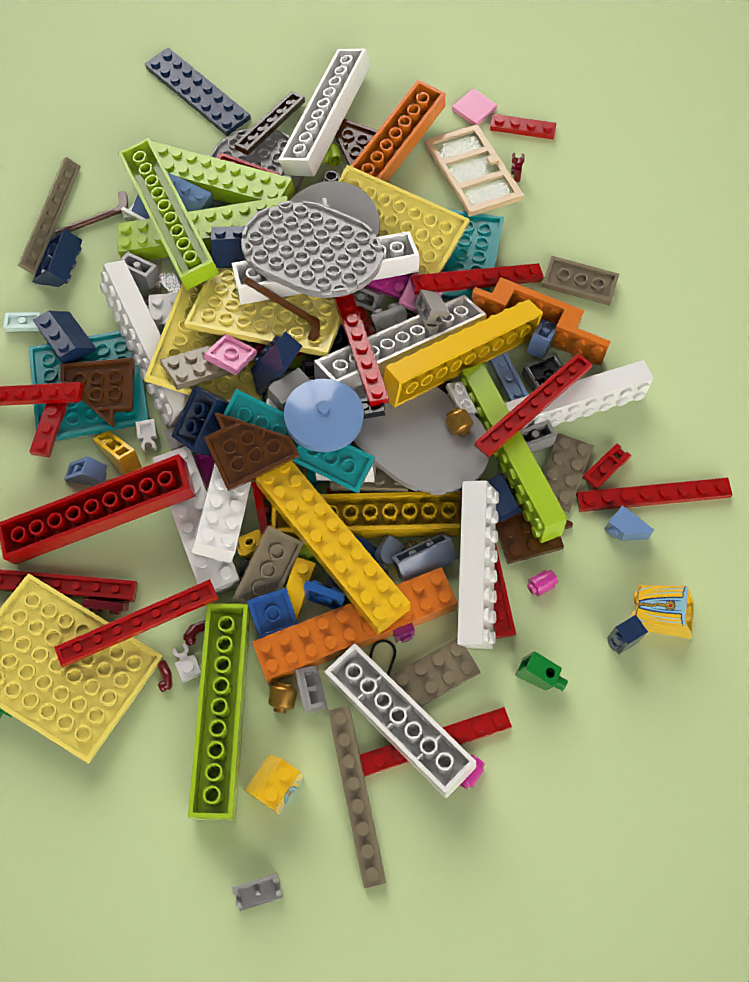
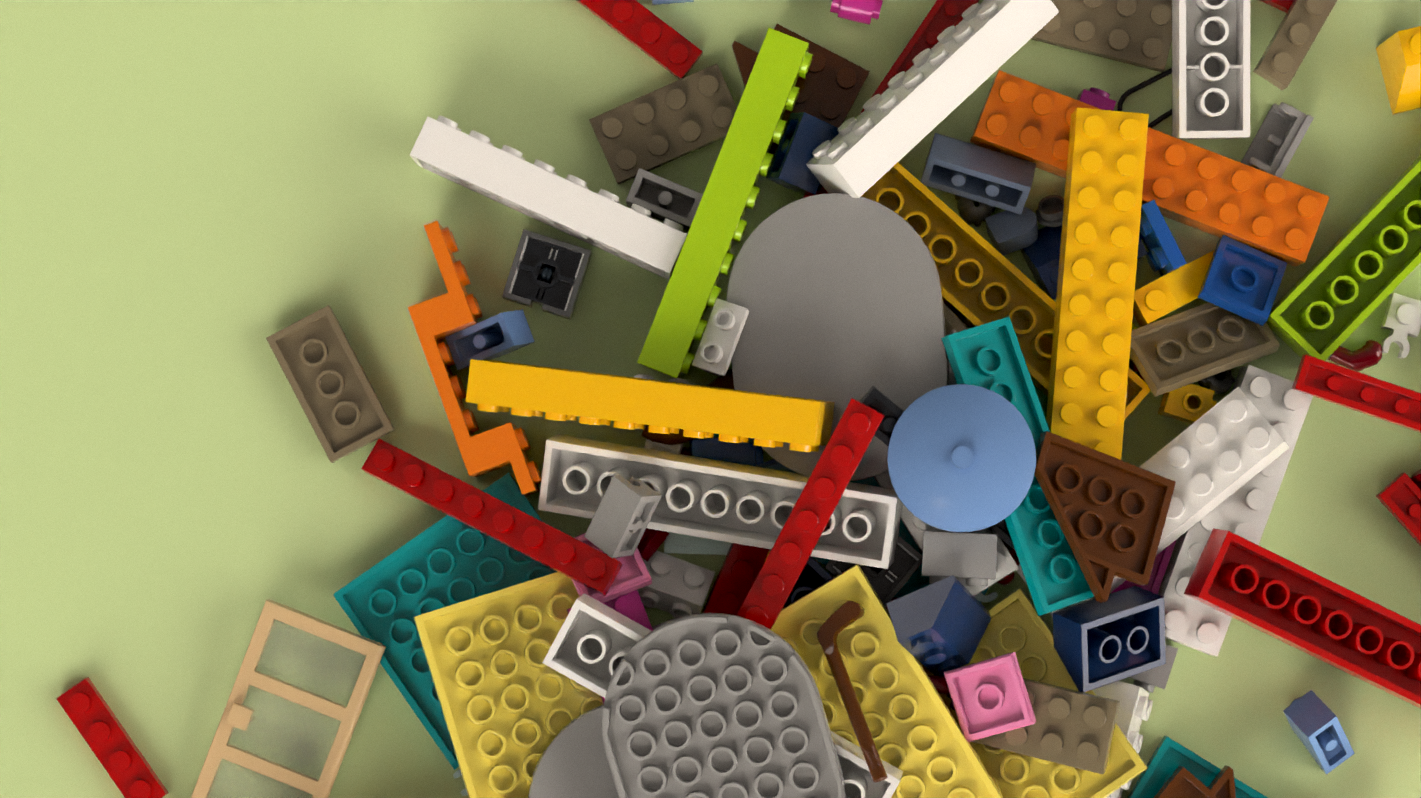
camera: 140 degrees left, 20 degrees up
(118, 452) = (1251, 724): yellow slope -> none
(147, 432) = (1182, 720): white plate -> none
(262, 510) = (1143, 416): red plate -> none
(282, 696) = (1320, 164): pearl gold head -> none
(459, 422) = (770, 293): pearl gold head -> none
(508, 377) = (604, 315): light blue plate -> none
(516, 167) = (215, 667): dark red plate -> none
(532, 405) = (641, 224): red plate -> none
(606, 466) = (603, 75): red plate -> none

